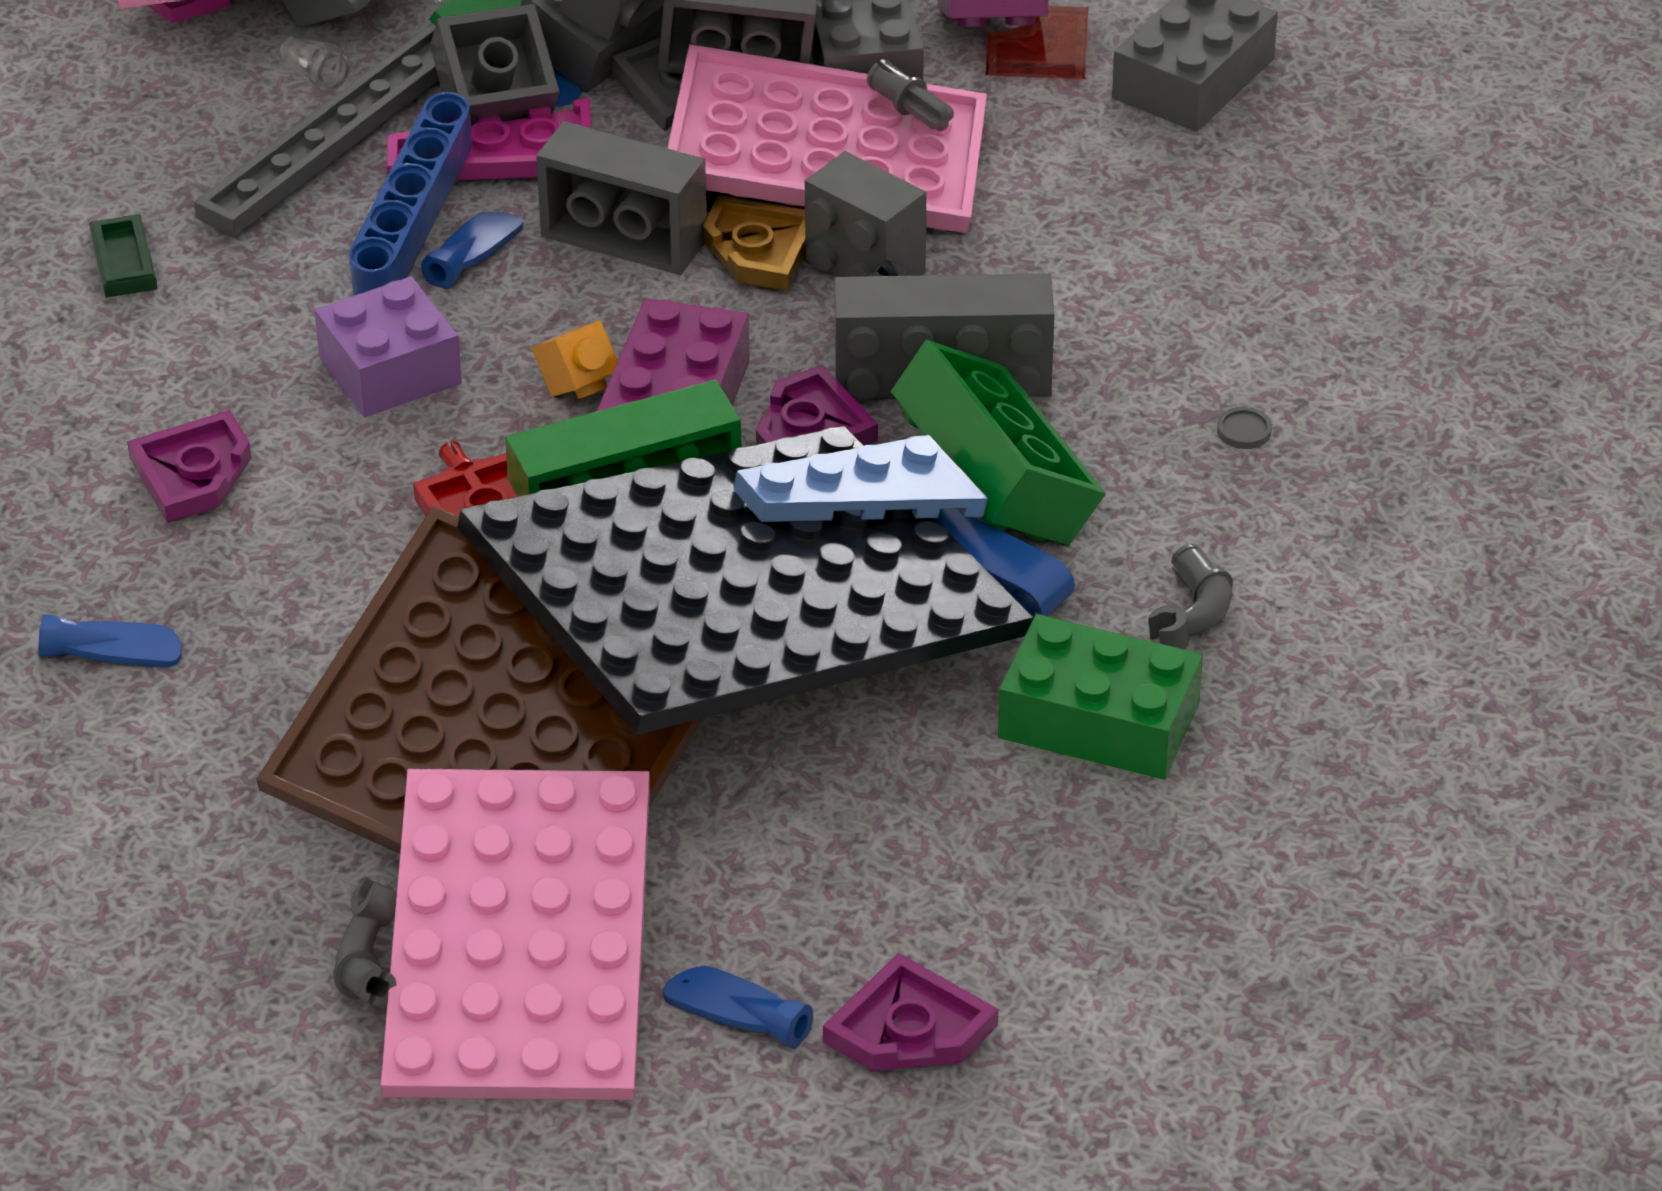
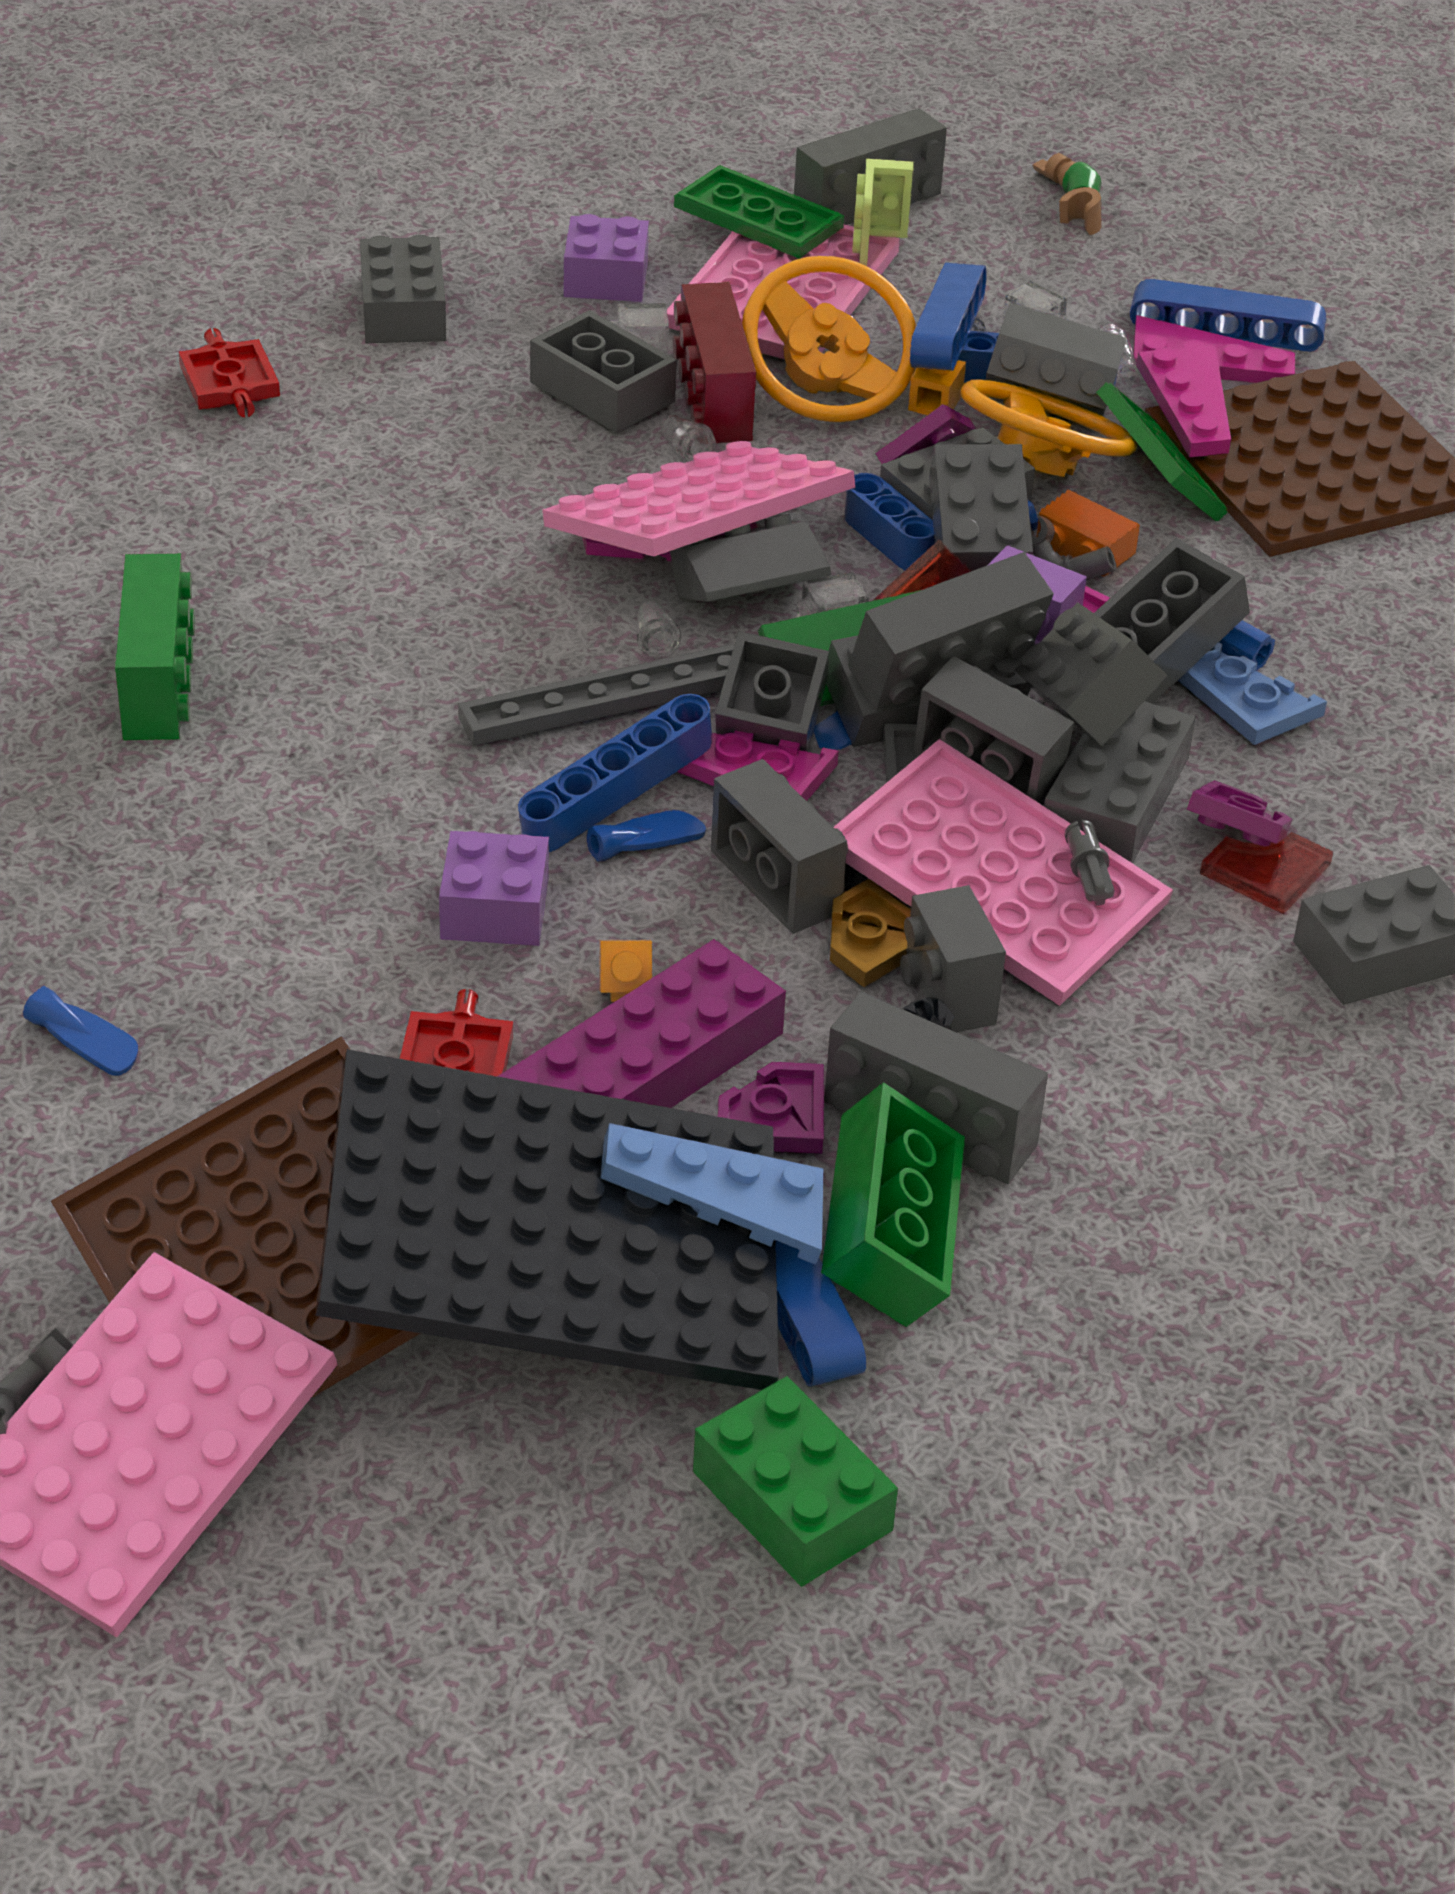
camera: 30 degrees right, 0 degrees up
(123, 255) = (378, 724): dark green tile -> none
(191, 464) = (268, 916): magenta plate -> none
(624, 439) = (561, 1053): green brick -> none
(739, 1004) = (266, 1599): blue piece -> none
(909, 1020) = (380, 1691): magenta plate -> none
(1209, 591) = (980, 1435): dark grey piece -> none
(1244, 427) = (1151, 1294): dark grey piece -> none

